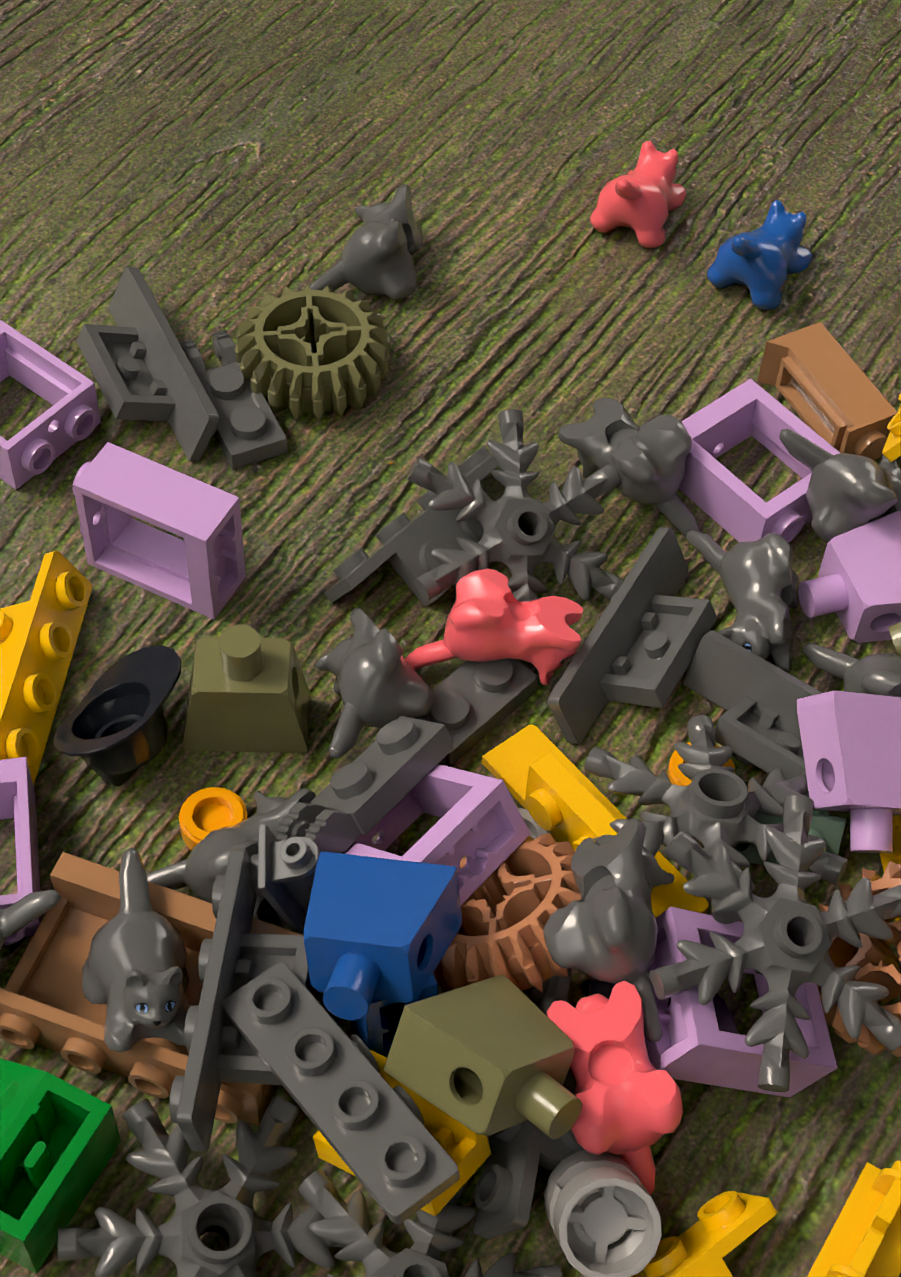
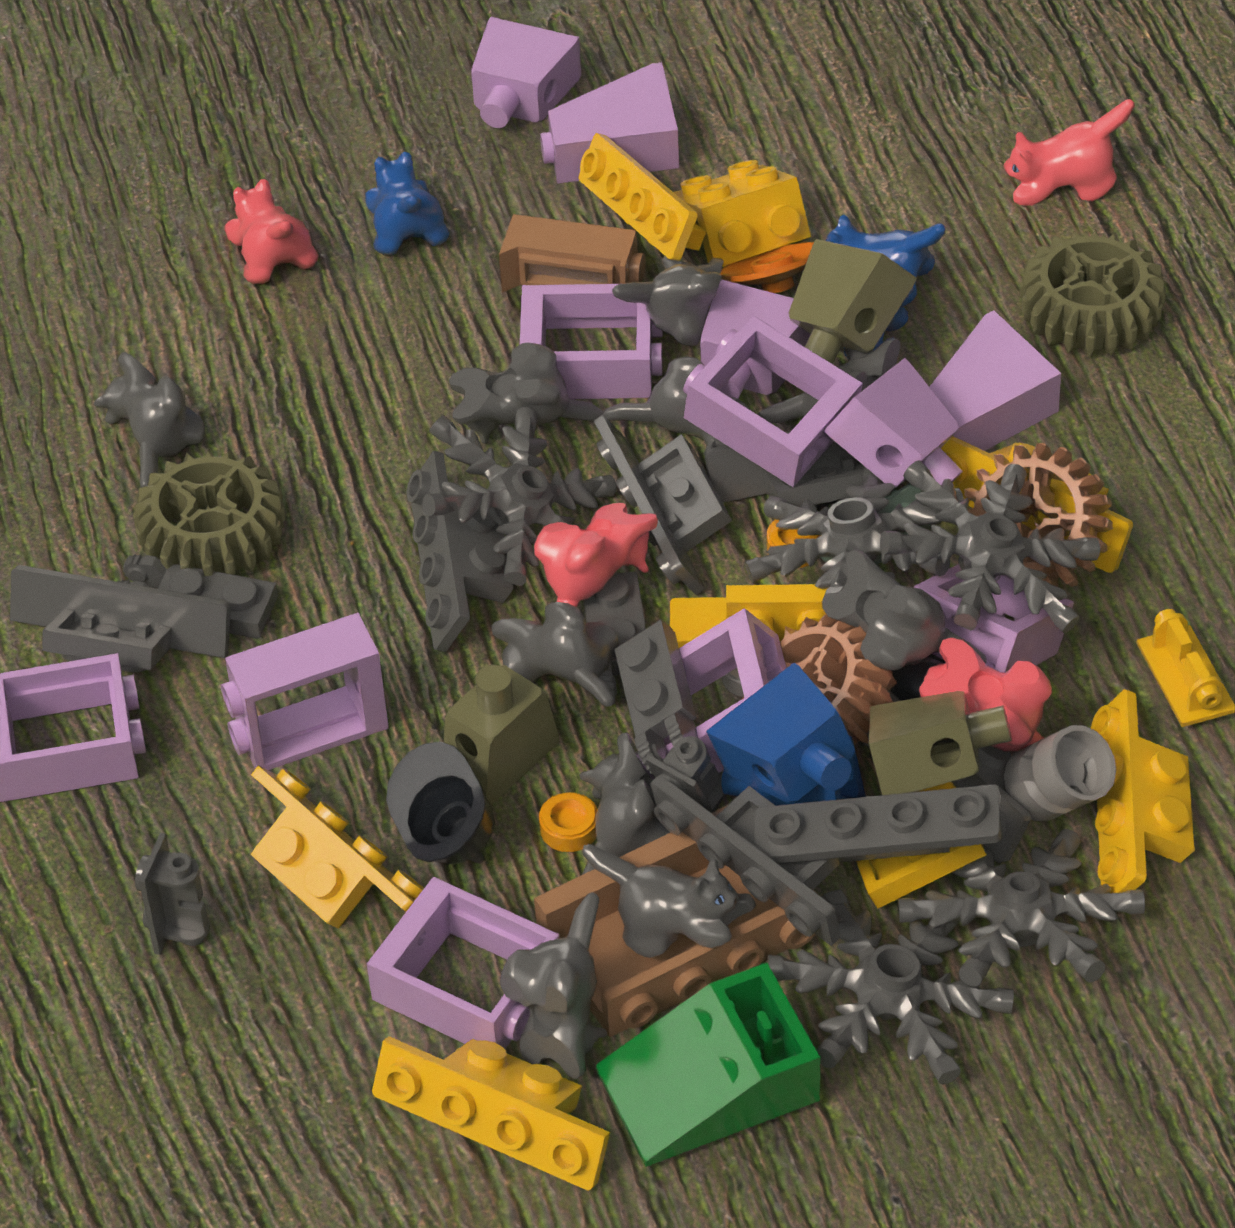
camera: 45 degrees left, 5 degrees down
(774, 695) = (749, 434): none -> lavender window

